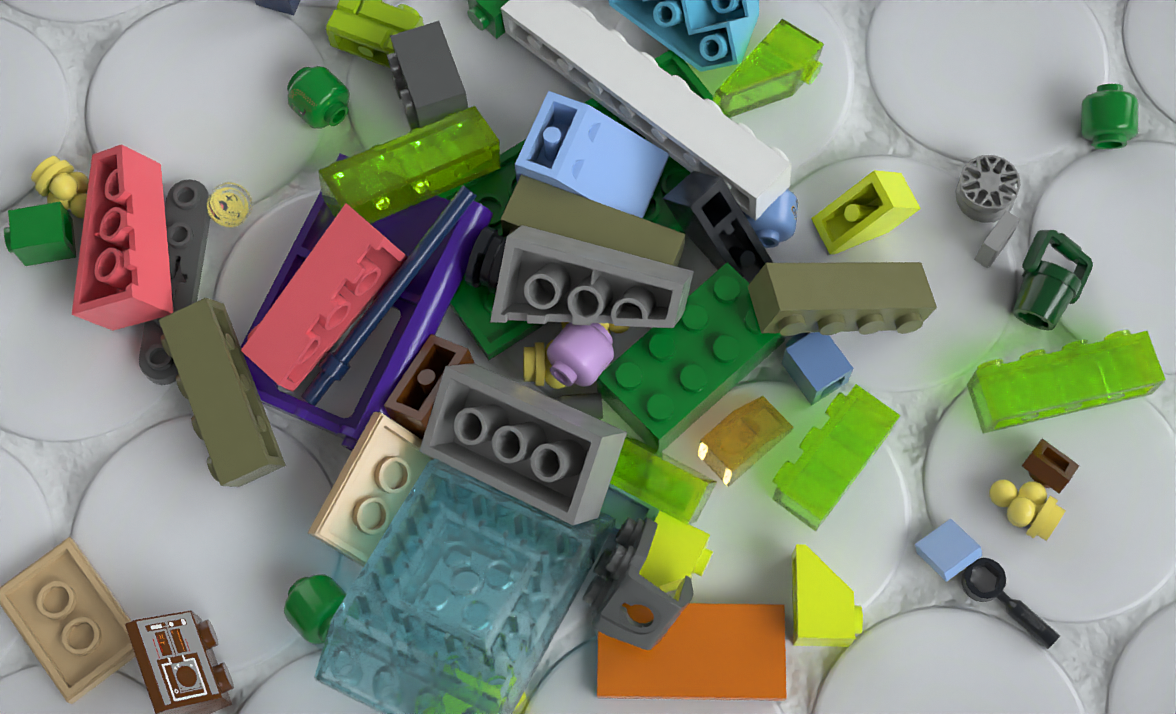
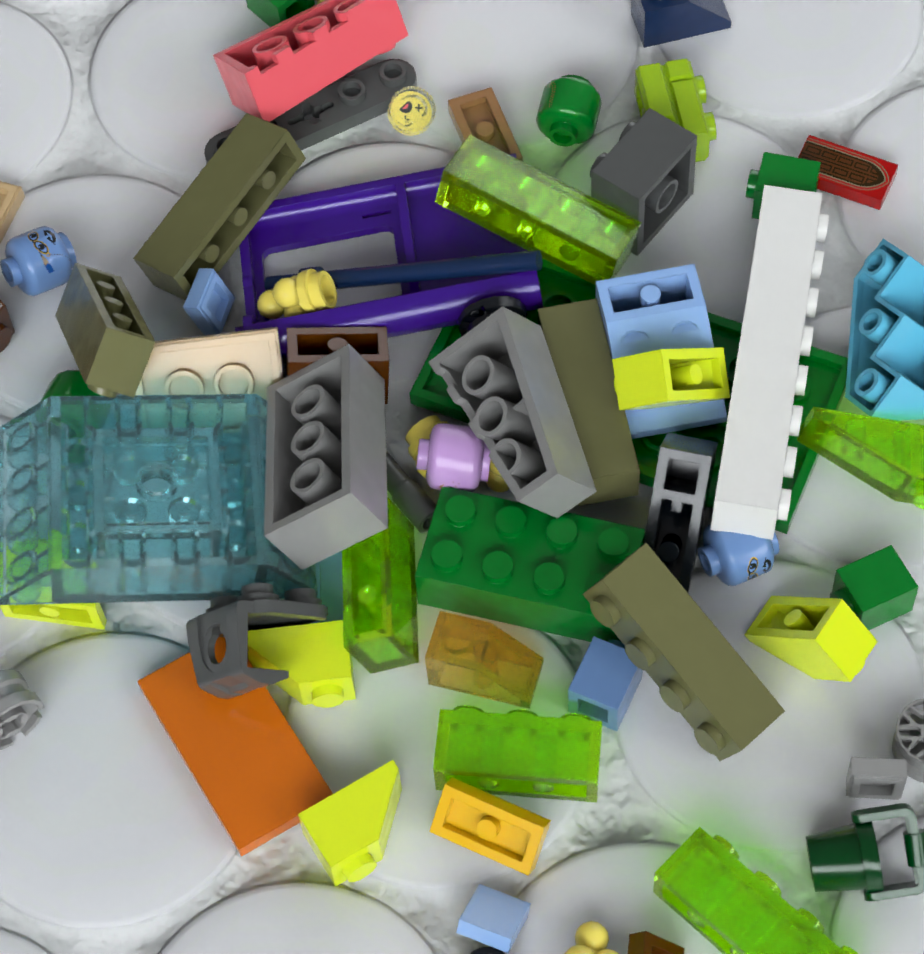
camera: 60 degrees right, 10 degrees down
(157, 562) = (38, 260): none -> medium blue head
(287, 165) = (482, 117): none -> medium nougat plate
(291, 542) = (104, 331): none -> olive brick
(297, 452) = (209, 301): none -> light blue tile
(323, 299) = (360, 220): coral wedge -> none
(352, 382) = (299, 295): none -> light yellow piece
(630, 168) = (670, 378): none -> neon yellow slope
(856, 149) = (876, 587): none -> green brick
(878, 509) = (490, 826): none -> yellow plate

